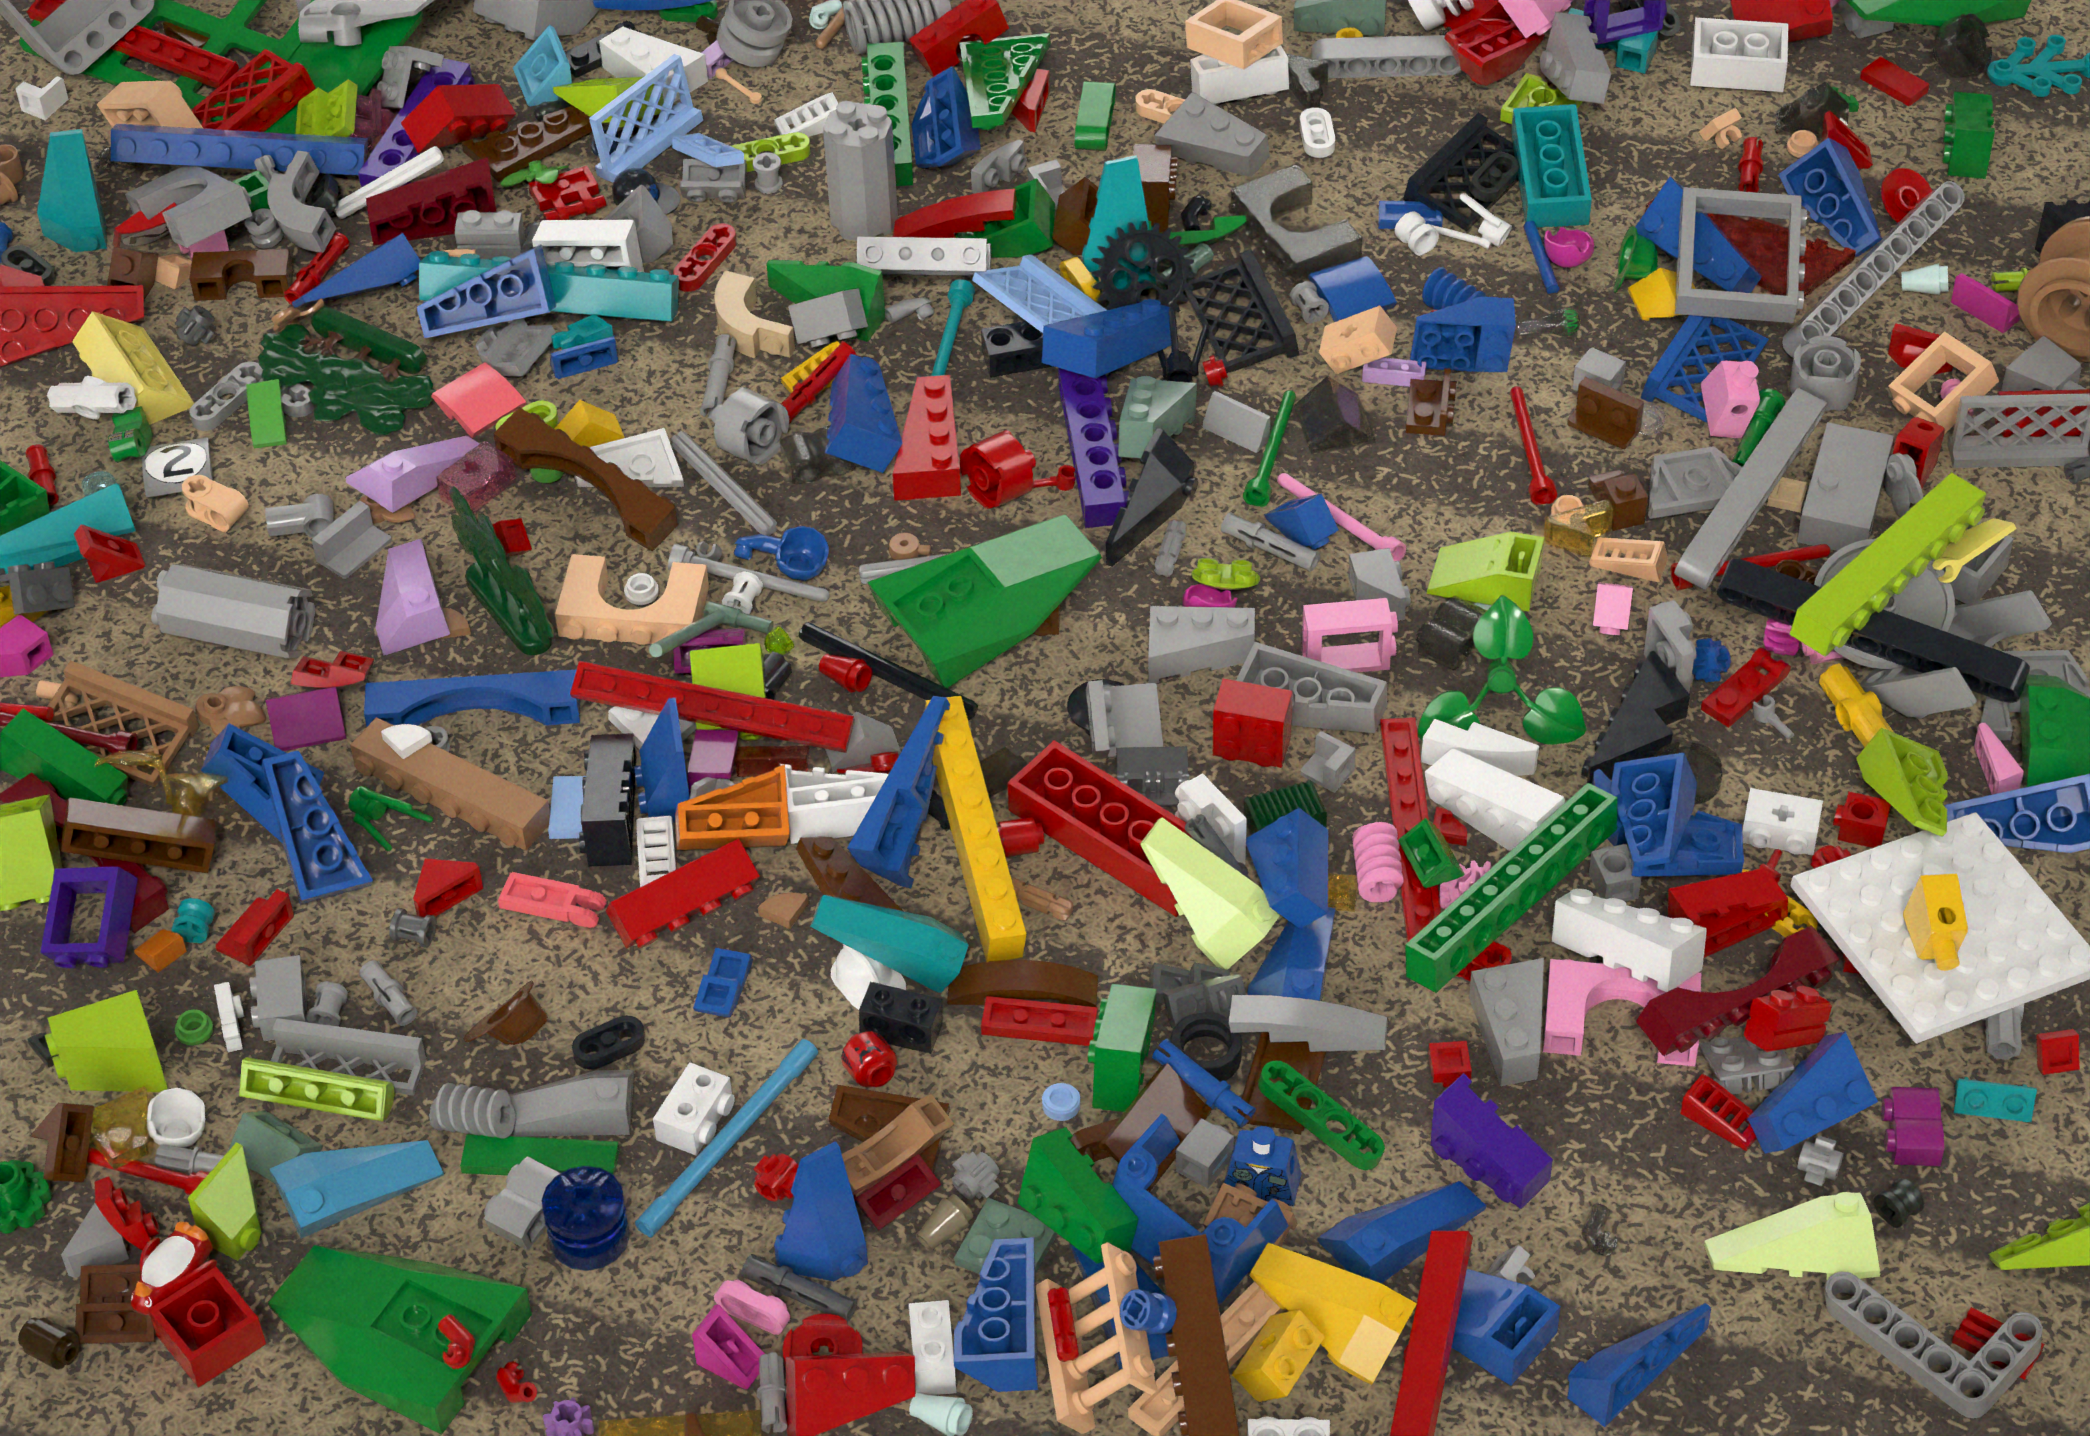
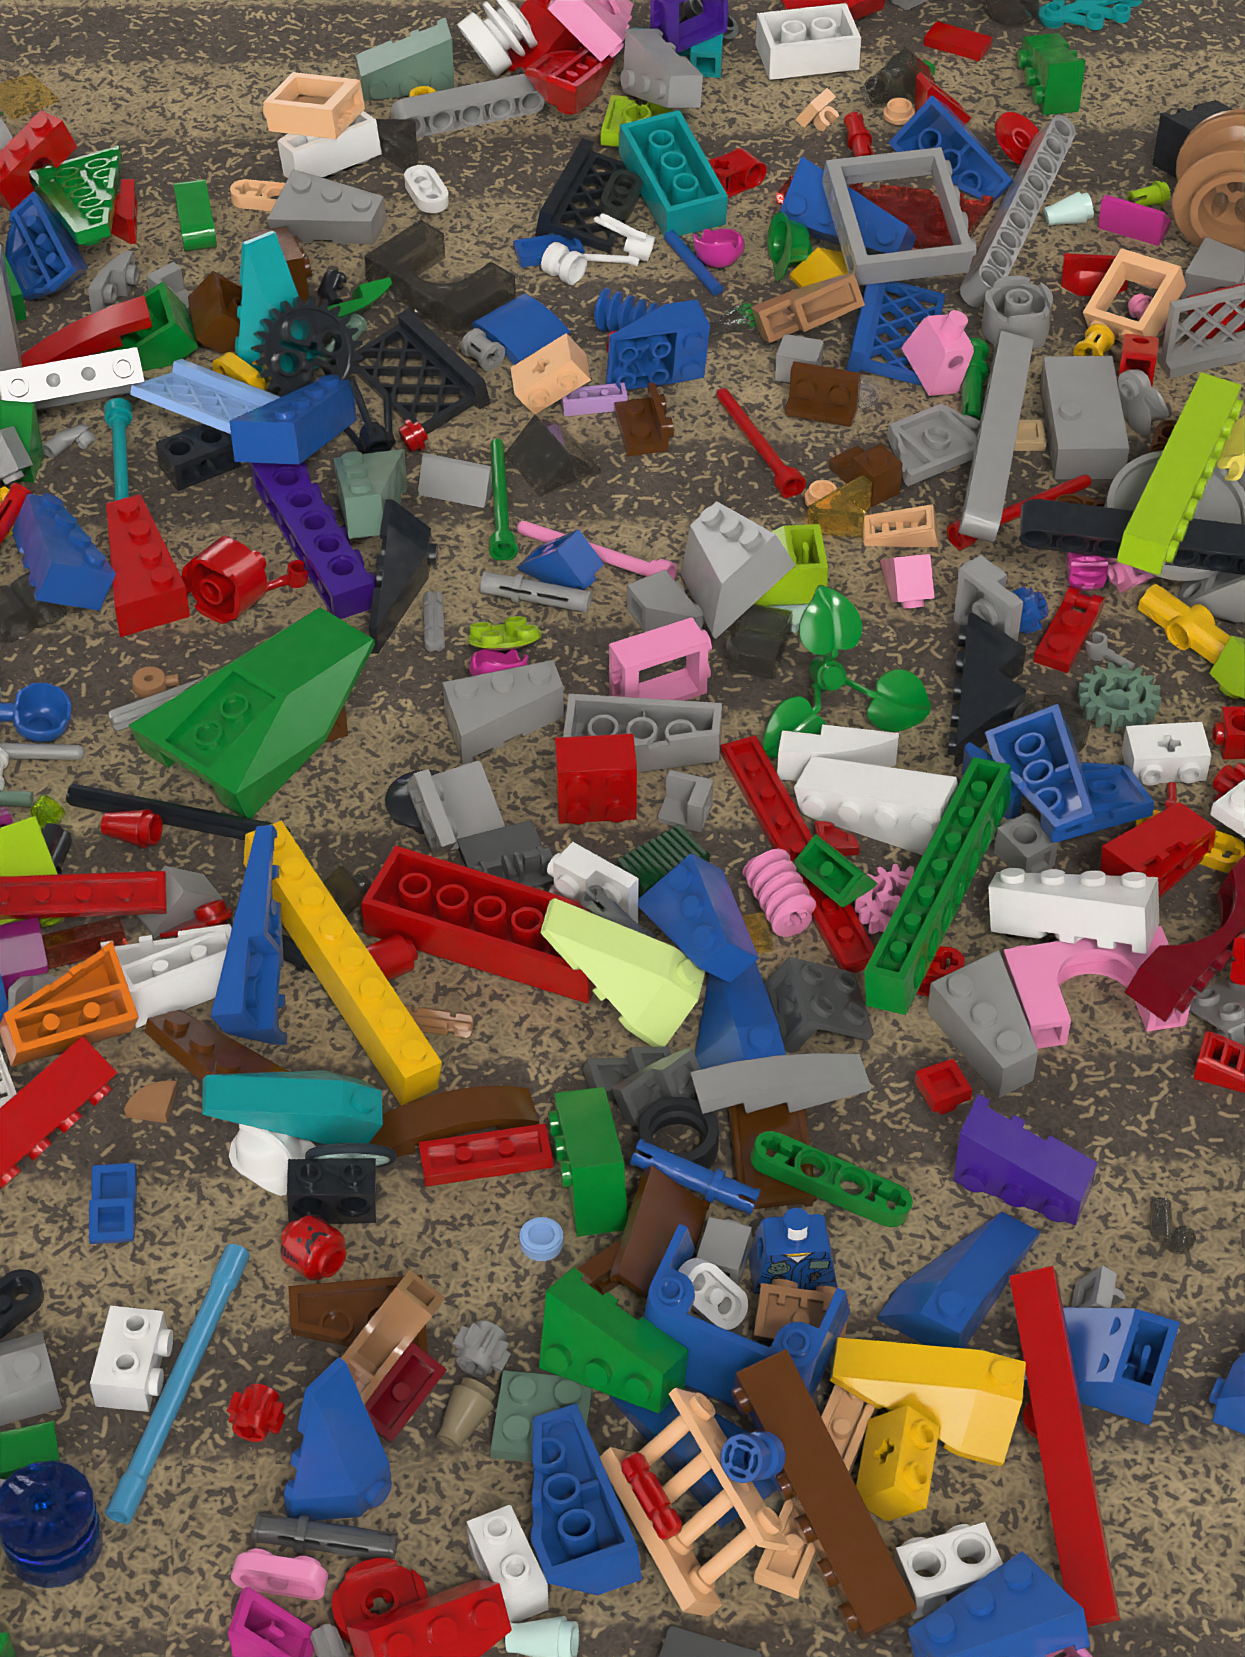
camera: 20 degrees left, 0 degrees up
(950, 999) = (383, 1154): none -> black wheel
(1179, 1177) = (714, 1288): none -> white plate
(1369, 960) = (813, 998): none -> dark grey bracket
(1447, 558) = (730, 565): none -> light grey wedge
(1616, 175) = (738, 171): none -> red piece
(1624, 325) = (807, 307): none -> medium nougat slope
(1761, 760) = (1119, 696): none -> sand green gear
(1889, 419) = (1103, 344): none -> yellow bush

